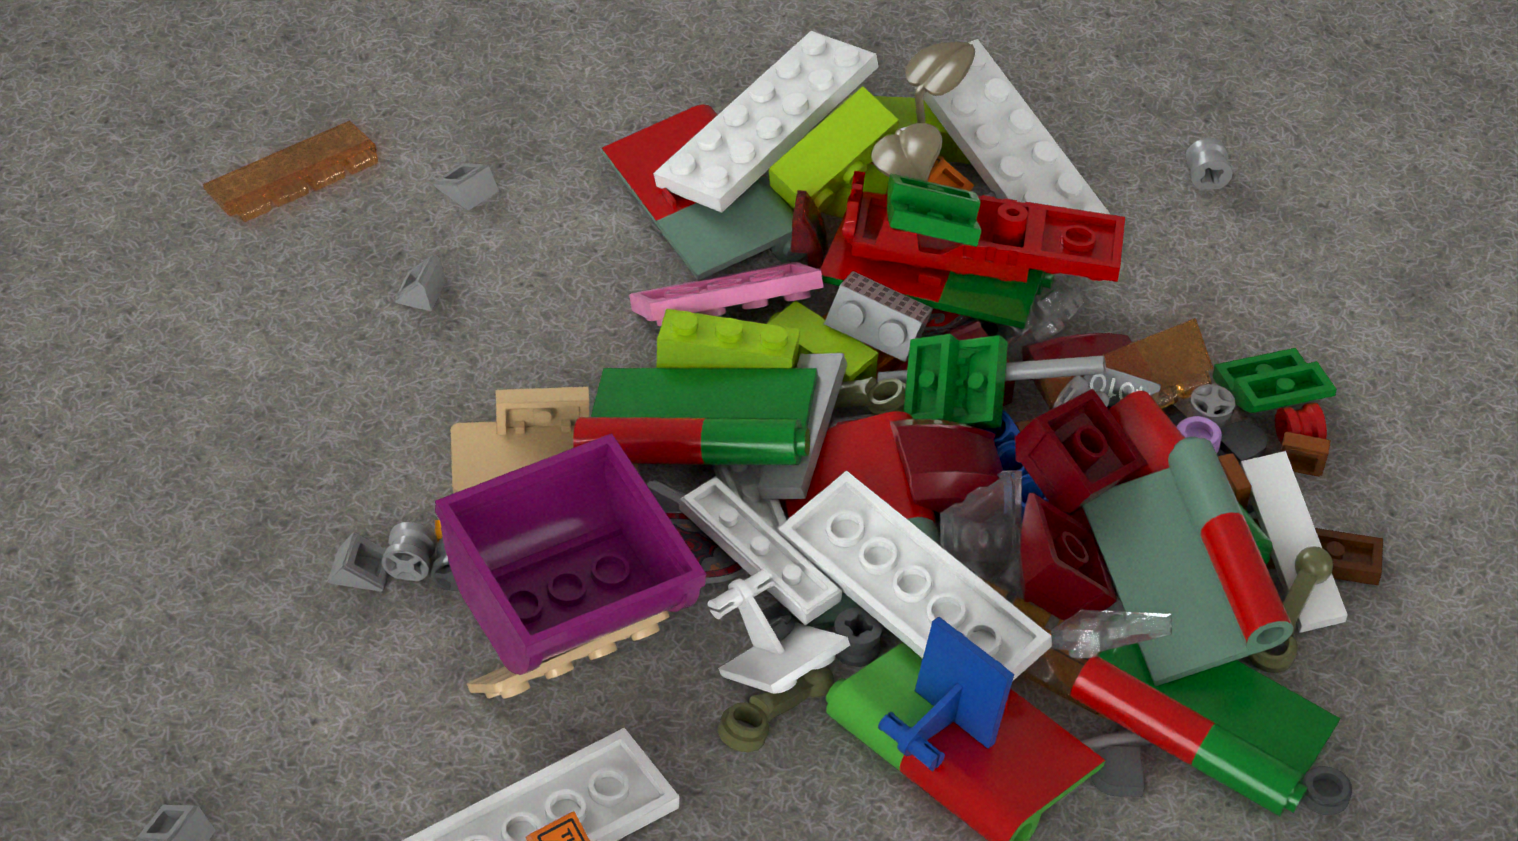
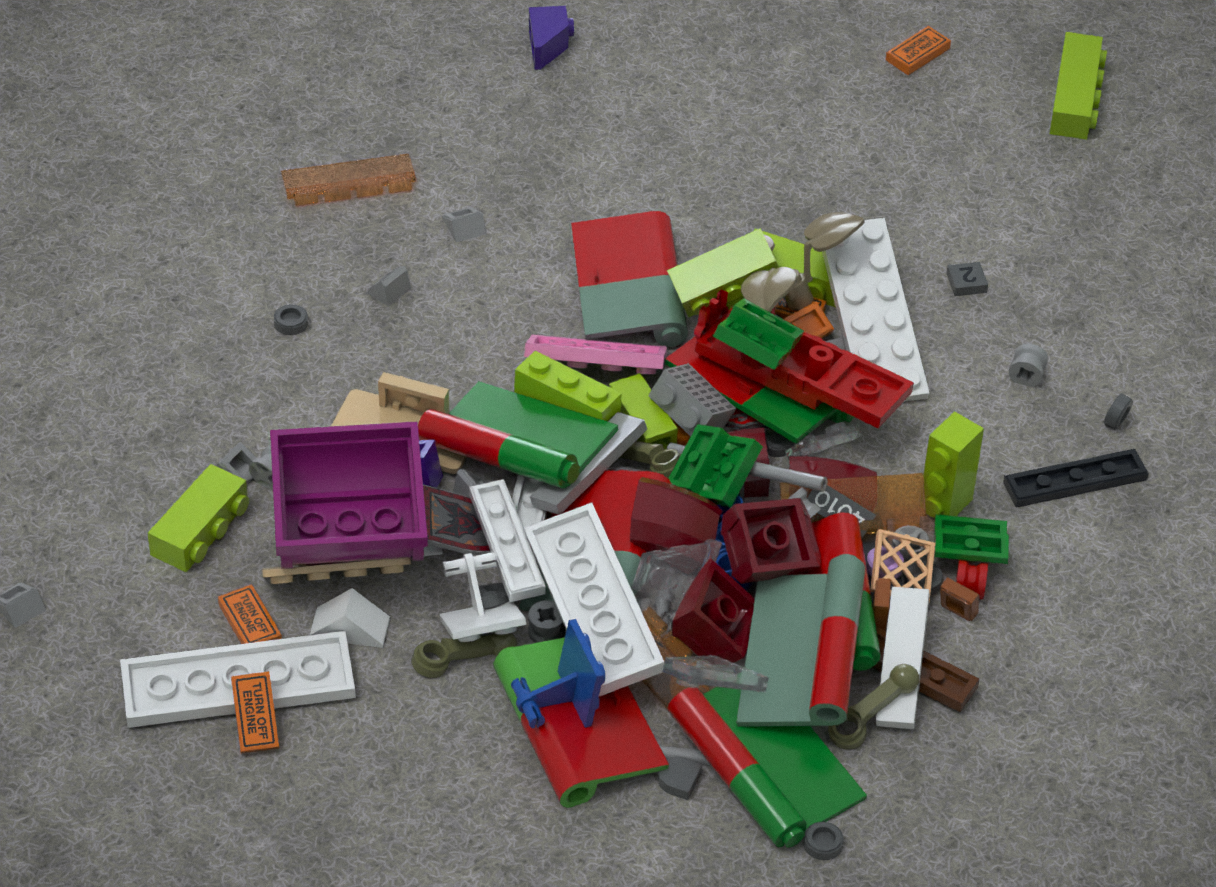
camera: 25 degrees right, 0 degrees up
(322, 362) = (290, 319): none -> dark grey tile
(356, 646) = (198, 518): none -> lime brick
(487, 751) = (248, 616): none -> orange tile
(614, 705) = (356, 616): none -> white slope
(765, 121) = (677, 239): white plate -> none
(808, 230) = (676, 322): clear red slope -> none
(1078, 87) = (967, 279): none -> dark grey tile
(1223, 294) = (952, 465): none -> lime brick
(1249, 429) = (905, 541): none -> light nougat window
(1331, 277) = (1075, 477): none -> black tile
(1334, 187) = (1118, 411): none -> dark grey tile

